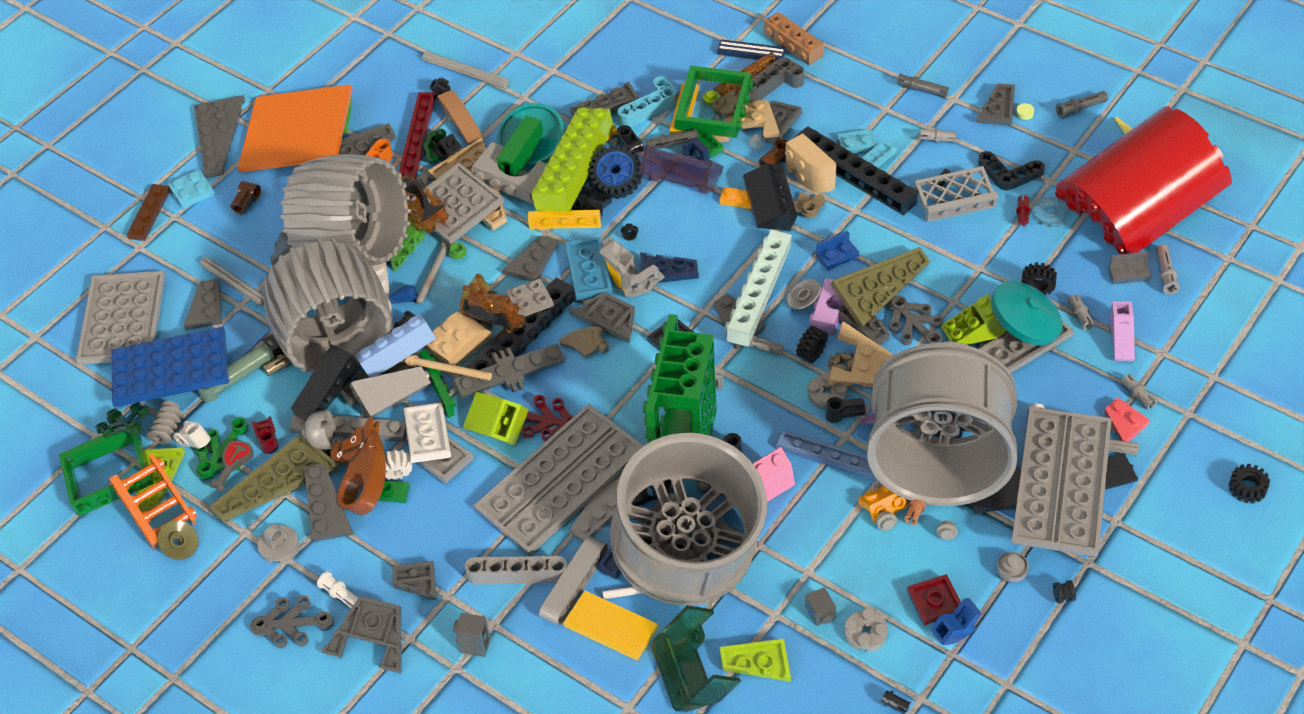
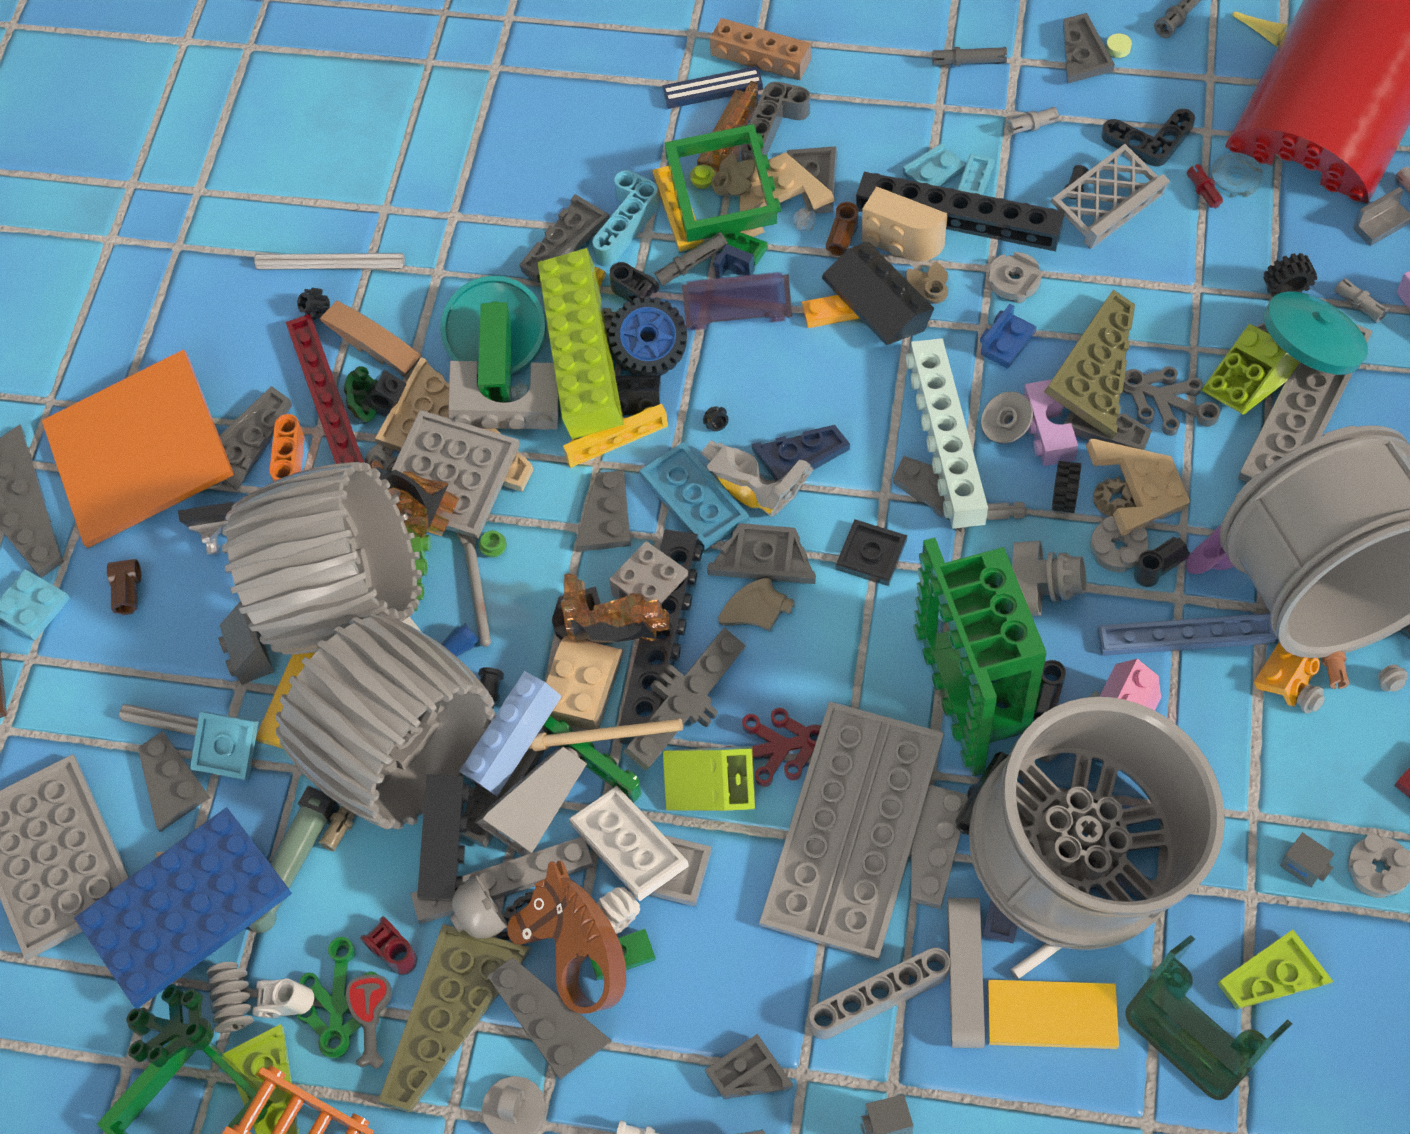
camera: 25 degrees left, 10 degrees up
(243, 296) = (224, 745): none -> medium azure plate
(765, 387) = (1052, 577): none -> light grey beam
(865, 227) = (1014, 289): none -> light grey plate

